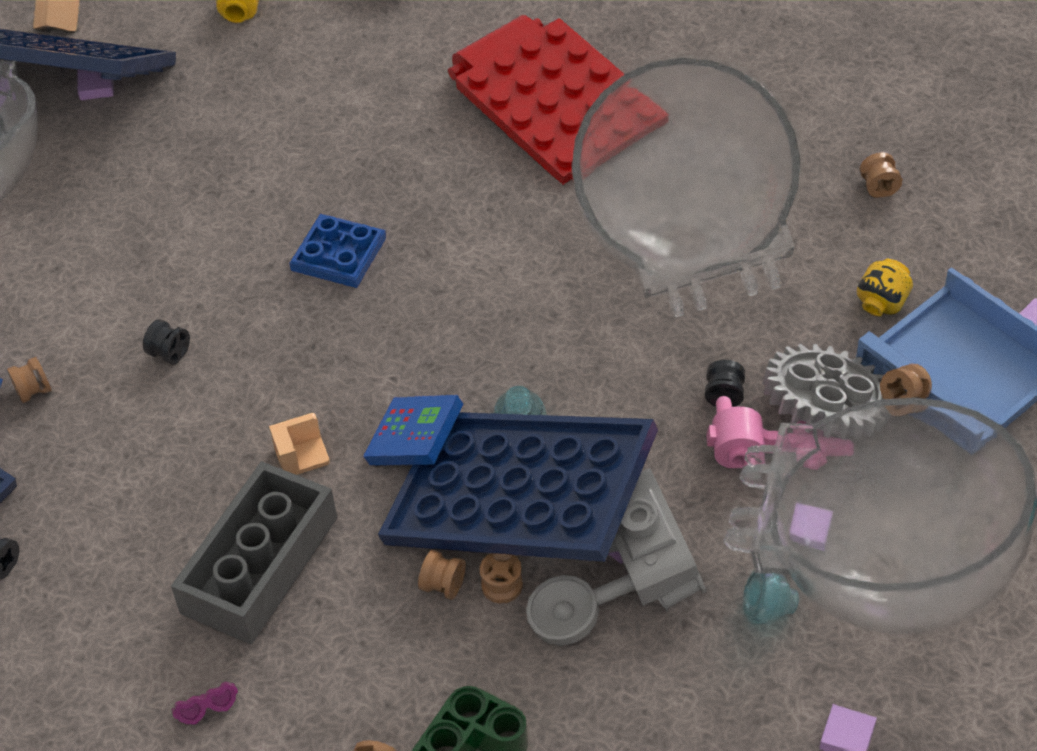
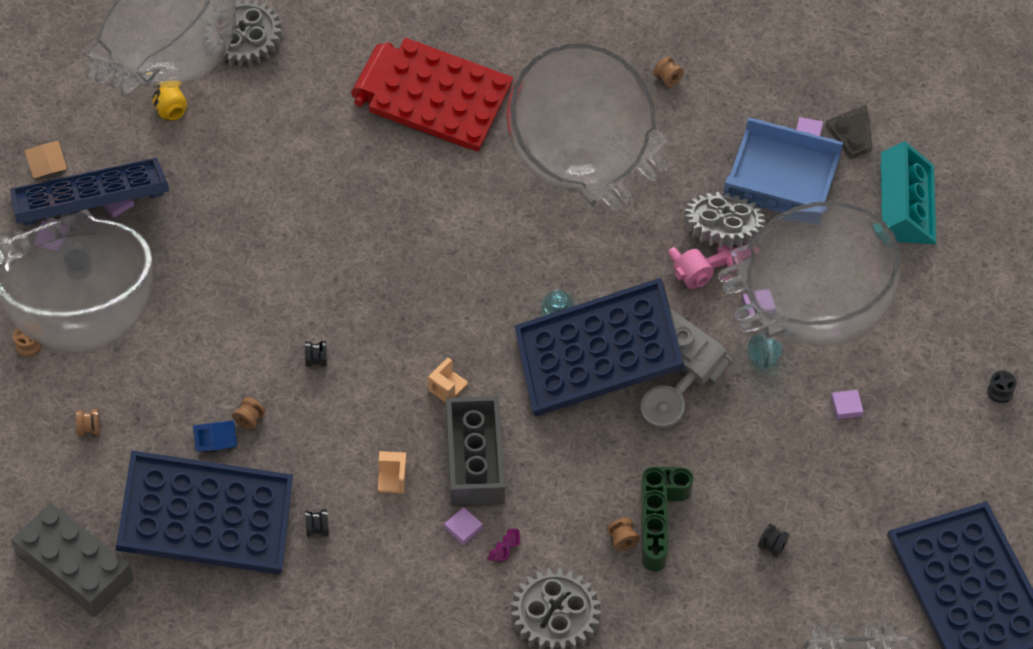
camera: 35 degrees left, 5 degrees up
(143, 535) = (392, 472): none -> light nougat panel
(174, 649) = (463, 526): none -> lavender tile
(338, 250) = (373, 251): blue tile -> none
(413, 430) = (508, 343): blue tile -> none
(441, 574) = (584, 417): medium nougat wheel -> none
(502, 567) = (612, 400): medium nougat wheel -> none
(725, 379) = (663, 239): black wheel -> none
(884, 287) = (715, 144): yellow head -> none
(908, 377) = (772, 195): medium nougat wheel -> none

